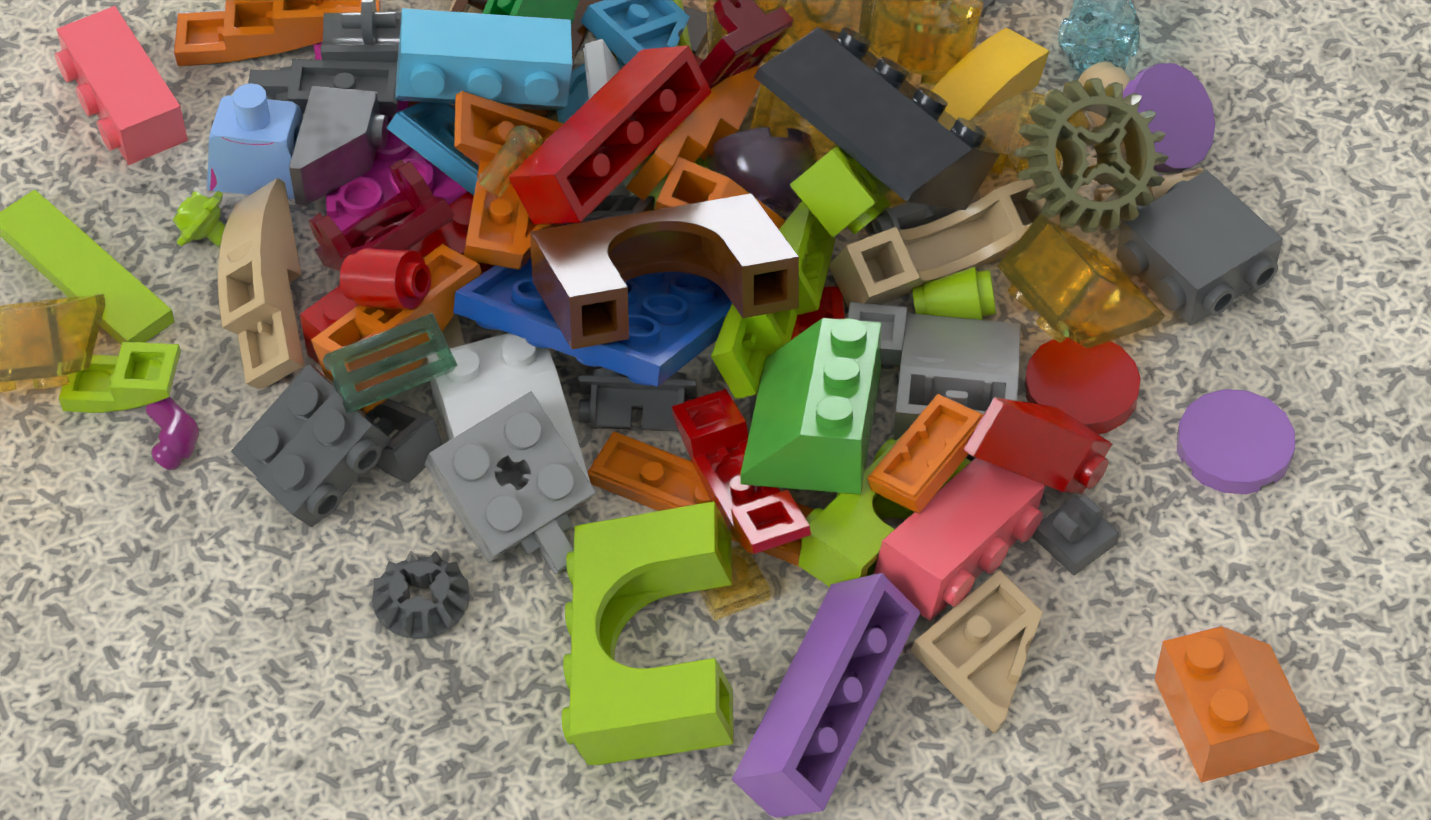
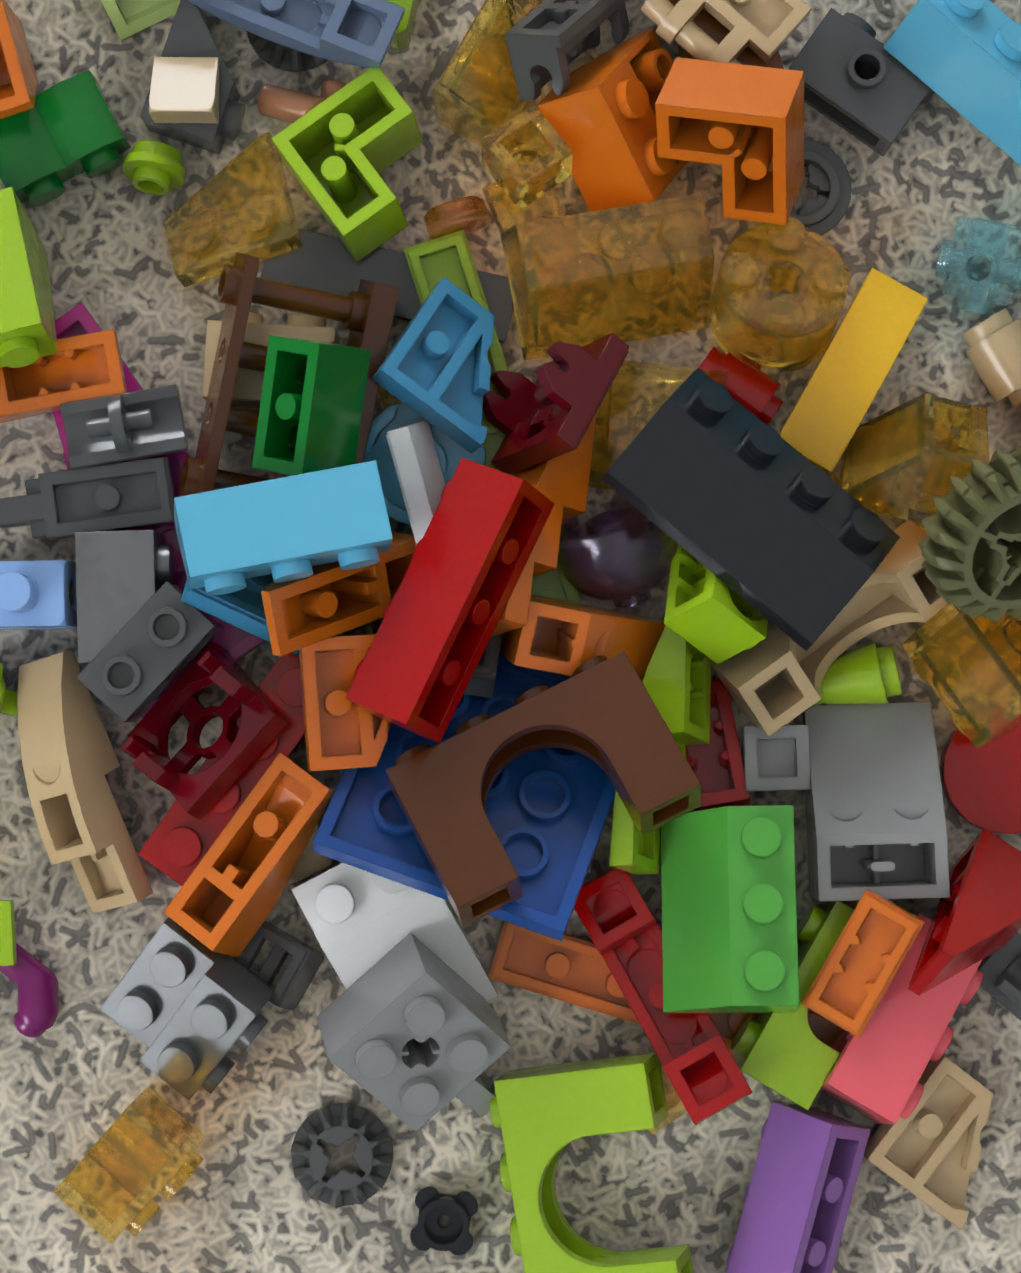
camera: 10 degrees left, 35 degrees up
(231, 555) = (138, 1157): none -> clear yellow brick
(345, 381) = (244, 928): clear green tile -> none
(347, 176) = (149, 653): none -> dark grey brick
(385, 278) = (232, 843): red brick -> none
(498, 642) = (431, 1234): none -> black plate
(518, 146) = (341, 660): clear yellow arm -> none

